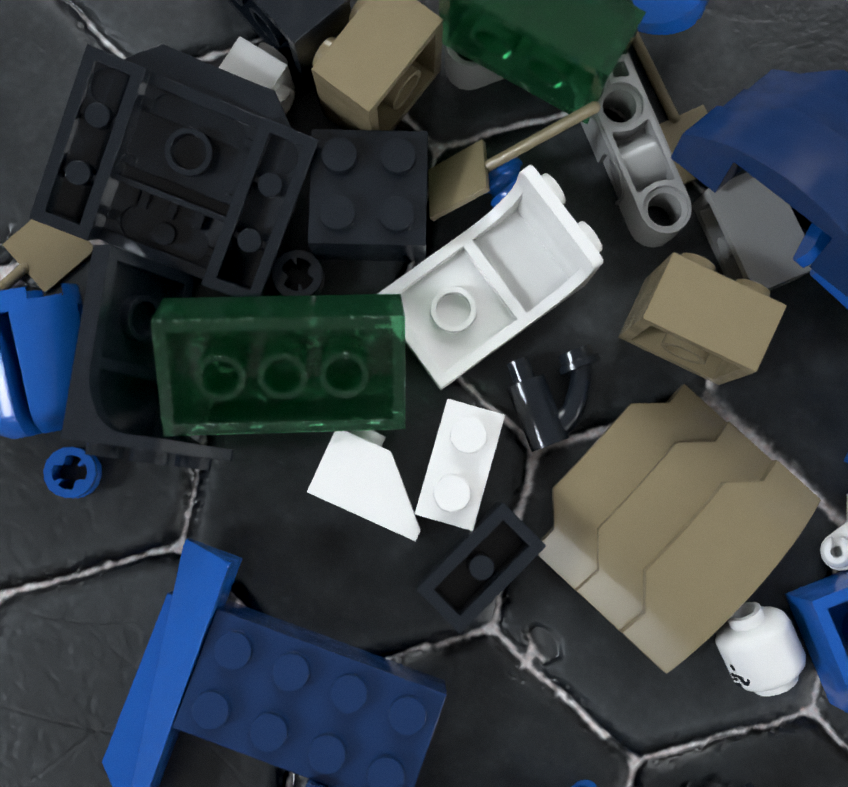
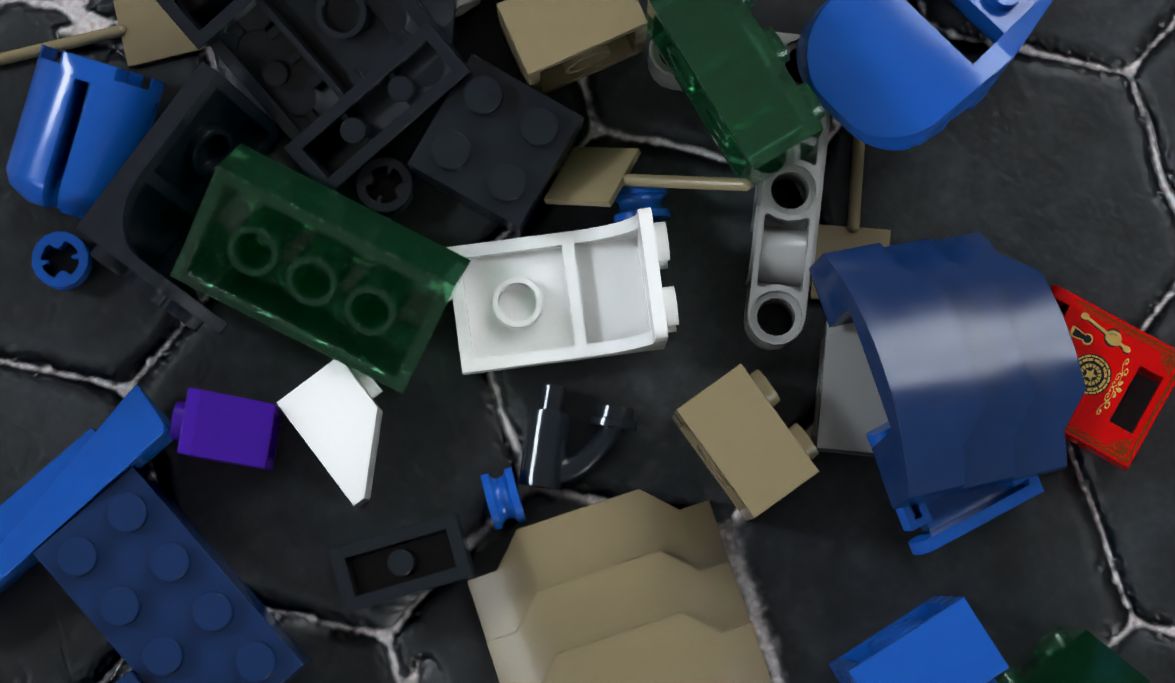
camera: 30 degrees right, 0 degrees up
(276, 536) = (227, 429): none -> dark purple slope
(459, 464) = (437, 457): white brick -> none
(527, 469) = (503, 498): none -> blue bush

